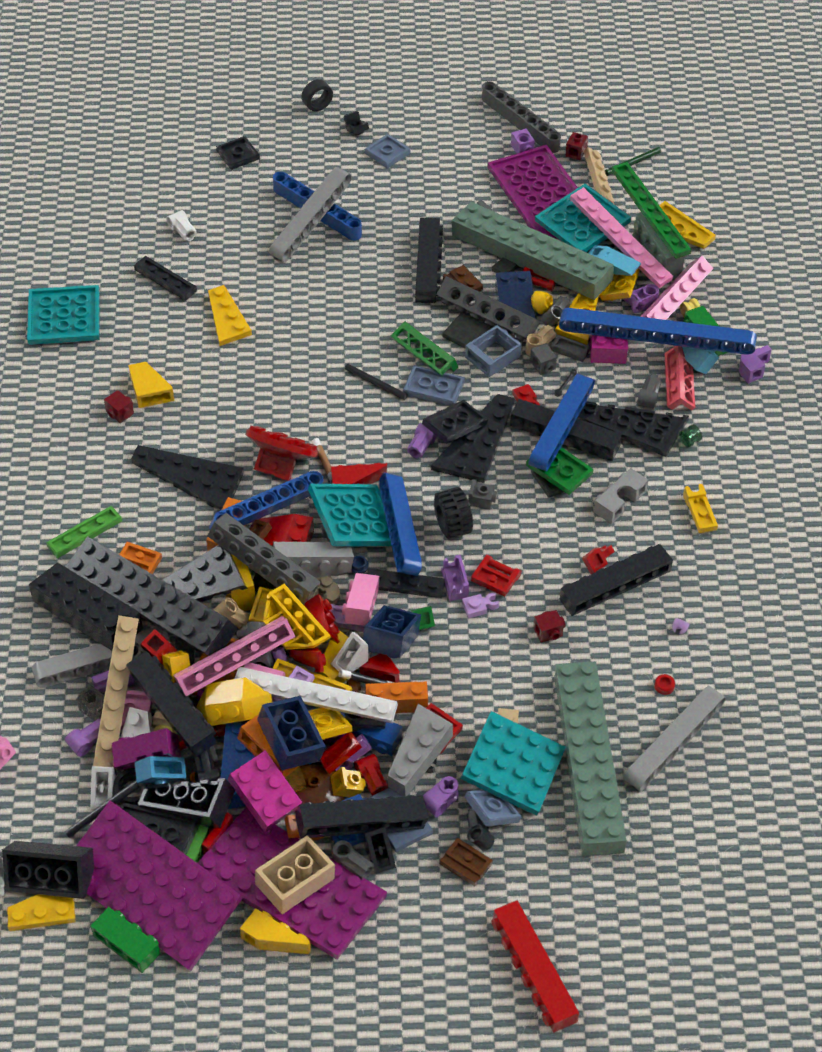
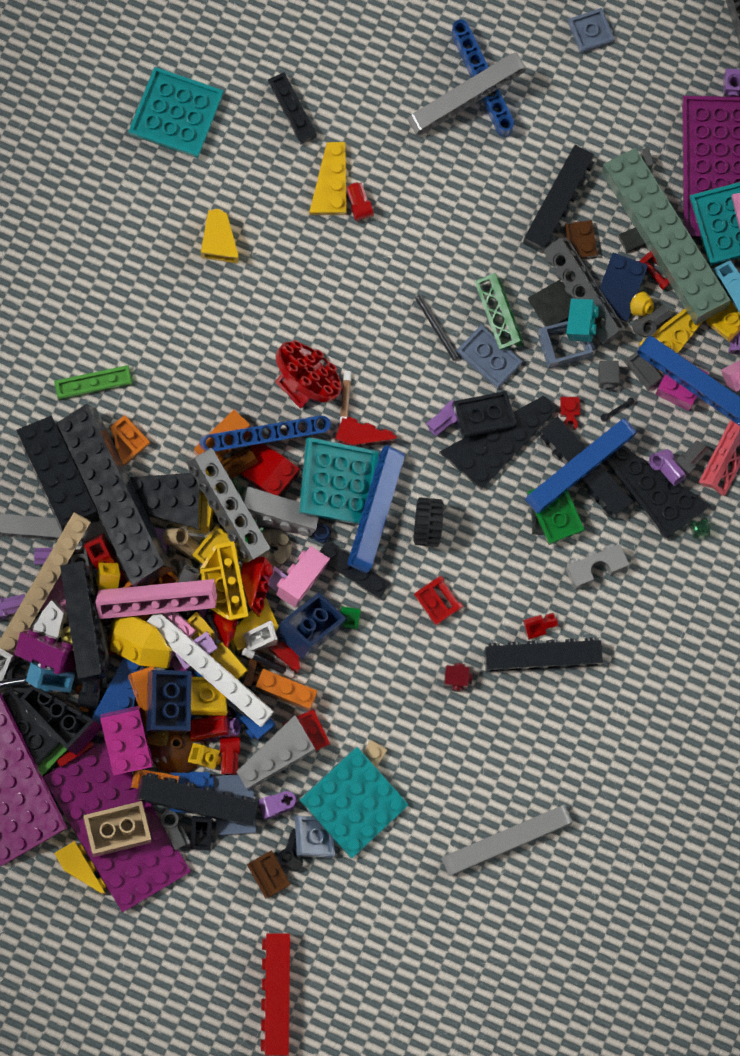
camera: 20 degrees right, 25 degrees up
(88, 696) = (20, 566): clear smoke brick -> none
(119, 406) = (181, 252): dark red brick -> none
(180, 223) = (336, 41): white piece -> none
(192, 475) = (223, 369): black wing -> none
(262, 322) = (360, 205): none -> red piece
(455, 579) = (398, 588): medium lavender hinge -> none
(478, 606) = (405, 623): lavender plate -> none
(481, 495) = (469, 514): dark grey brick -> none
(499, 321) = (582, 319): none -> teal brick
(544, 335) = (618, 349): tan piece -> none
(589, 759) = (422, 825): sand green brick -> none
(636, 400) = (665, 463): none -> medium lavender piece
(664, 684) = (529, 781): red tile -> none
(680, 624) = (576, 729): lavender hinge -> none
(700, 509) = (663, 615): yellow plate -> none

